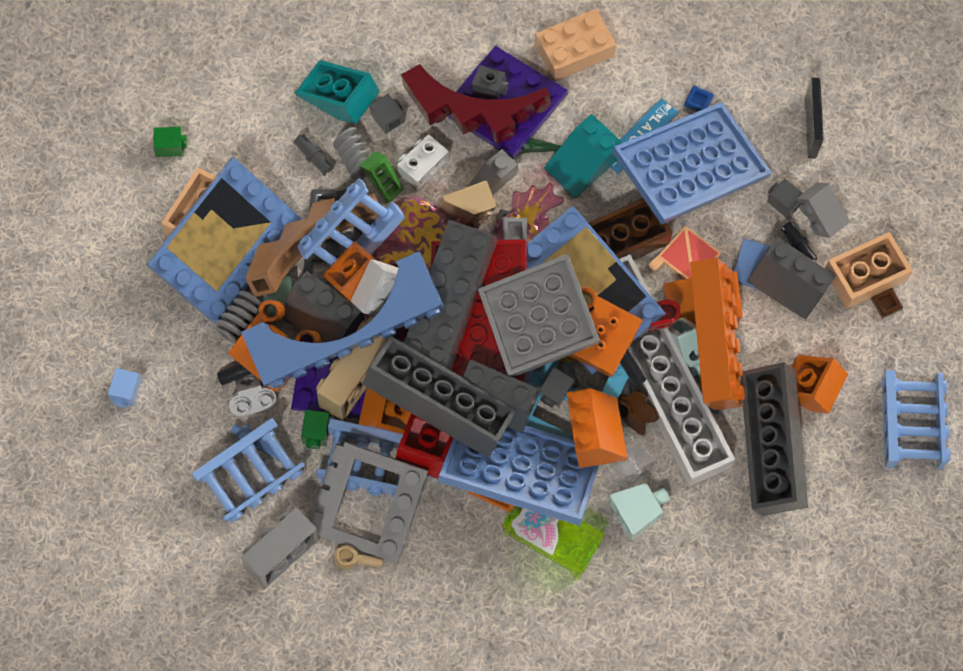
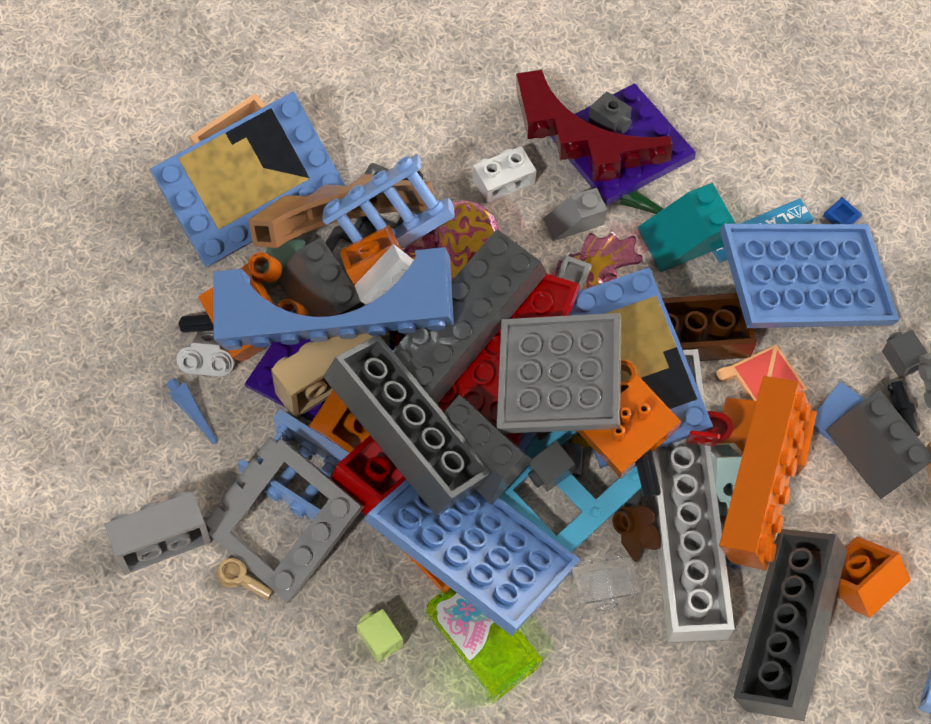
camera: 20 degrees right, 5 degrees down
(124, 388) = (72, 296): light blue brick -> none
(169, 141) = (240, 62): green brick -> none
(226, 460) = (144, 412): light blue fence -> none
(237, 316) = (230, 260): light grey piece -> none
(313, 154) = (389, 127): dark grey pin -> none
(315, 429) = (258, 415): green brick -> none
(339, 91) = (445, 73): teal slope -> none
(351, 152) = (433, 140): light grey piece -> none
(372, 166) = (446, 157): bright green slope -> none
(387, 112) = (486, 111): dark grey brick -> none
(469, 204) = (533, 228): tan slope -> none
(476, 561) = (379, 634): none -> yellowish green brick
(575, 44) = (723, 110): light nougat brick -> none
(596, 428) = (578, 529): orange slope -> none
(638, 508) = (596, 644): light aqua torso -> none

